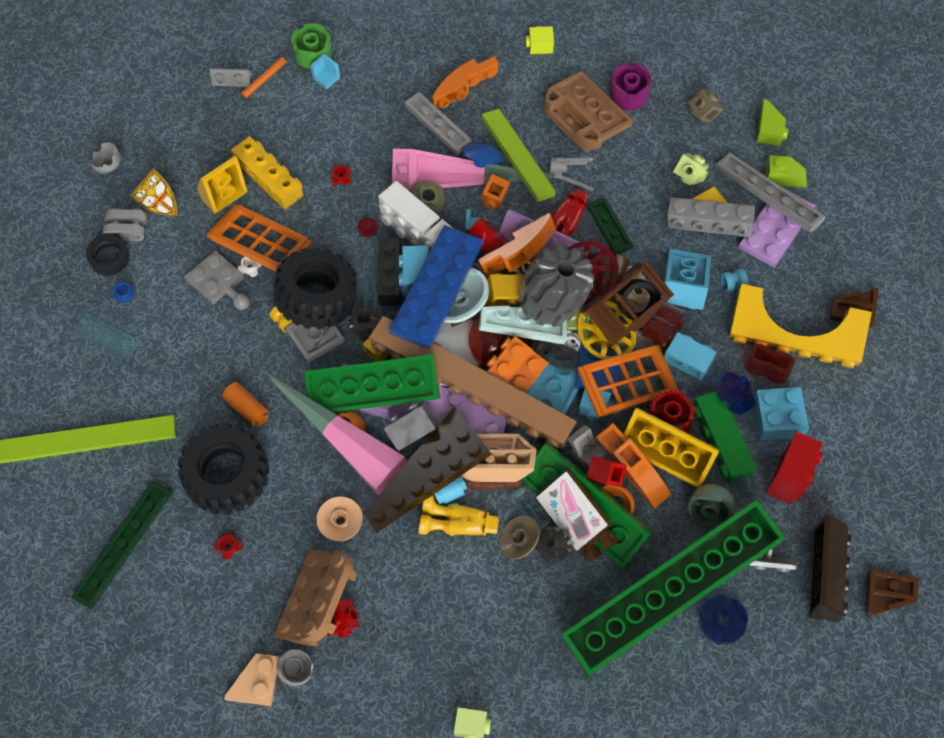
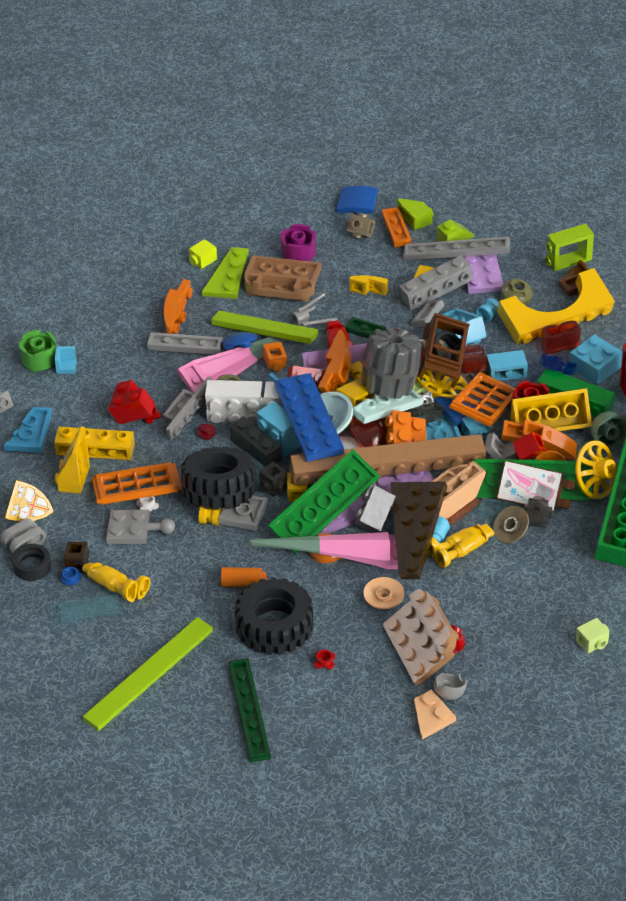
camera: 40 degrees left, 20 degrees down
(143, 276) = (76, 555): none -> dark brown brick
(147, 320) = (117, 581): none -> yellow piece
(232, 126) = (32, 433): none -> dark azure wing
(263, 77) = (18, 393): orange bar -> none
(328, 151) = (130, 403): none -> red brick
(365, 192) = (183, 409): none -> light grey bracket
(534, 82) = (228, 276): none -> lime wing
(649, 171) = (363, 284): none -> yellow slope
(650, 550) = (602, 469): none -> yellow wheel
(675, 243) = (427, 312): none -> light grey tile
(691, 169) = (386, 268): yellowish green brick -> none
(733, 74) = (357, 199): none -> blue slope
(739, 128) = (396, 227): none -> orange plate
(772, 284) = (508, 290): none -> olive piece
(880, 259) = (580, 234): none -> lime window

